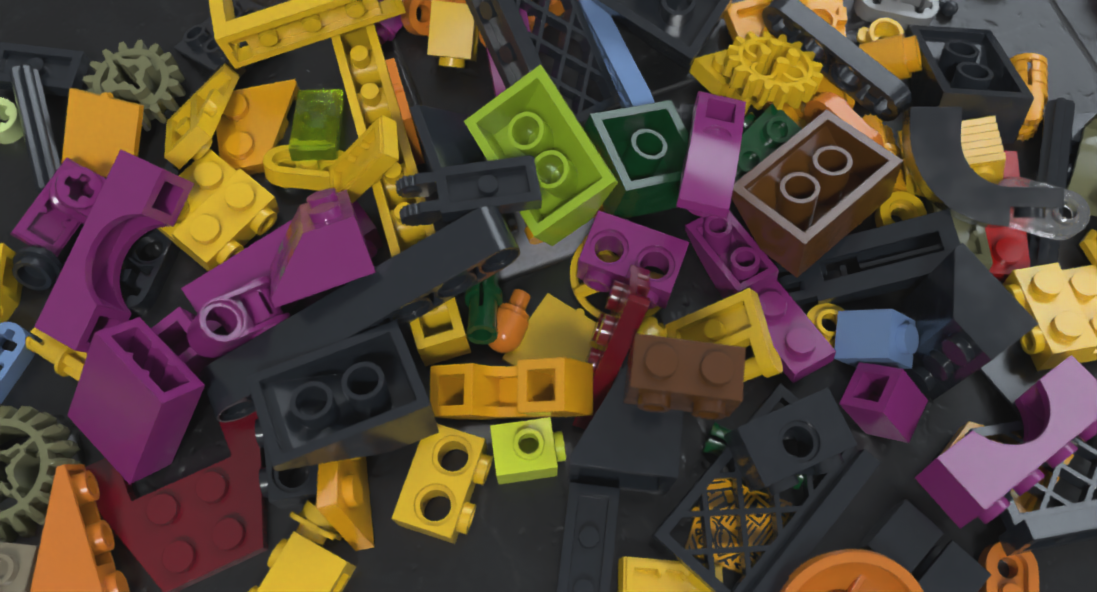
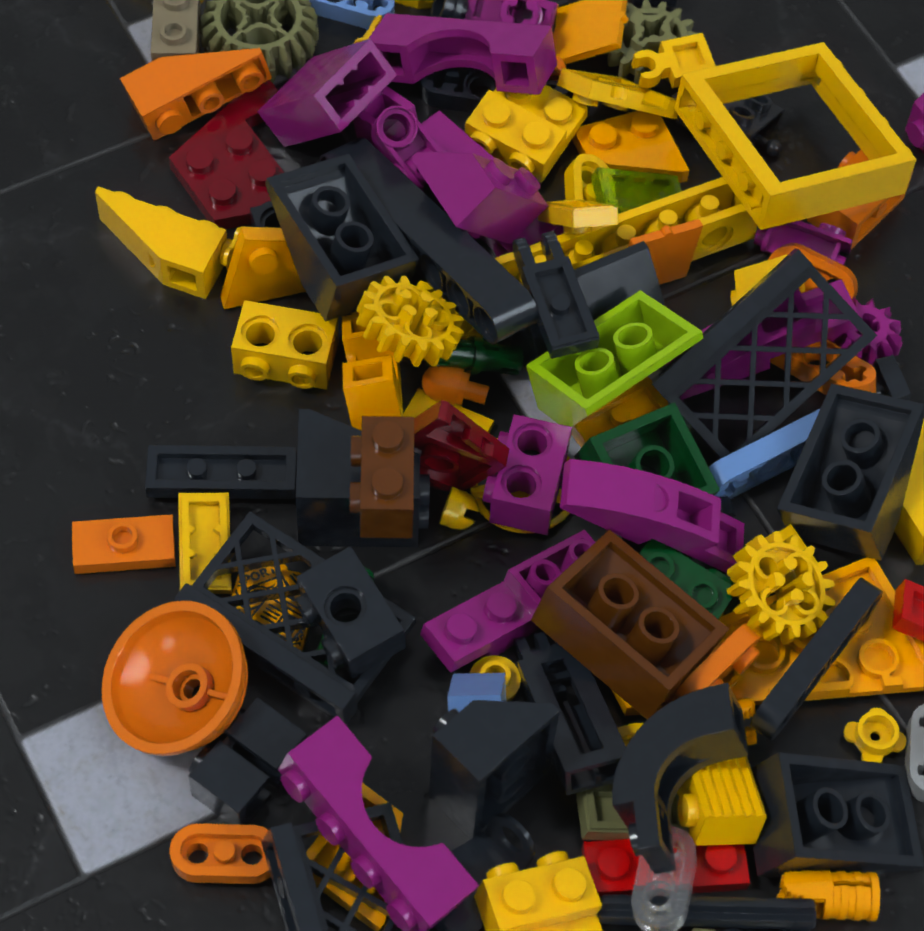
camera: 80 degrees right, 10 degrees down
(177, 55) = (673, 60): none -> yellow plate
(500, 335) = (409, 321): none -> yellow gear
(526, 450) = (322, 393): neon yellow brick -> none
(733, 322) = (463, 557): yellow plate -> none
(884, 401) = (408, 721): magenta brick -> none
(896, 53) = (833, 723): light orange brick -> none

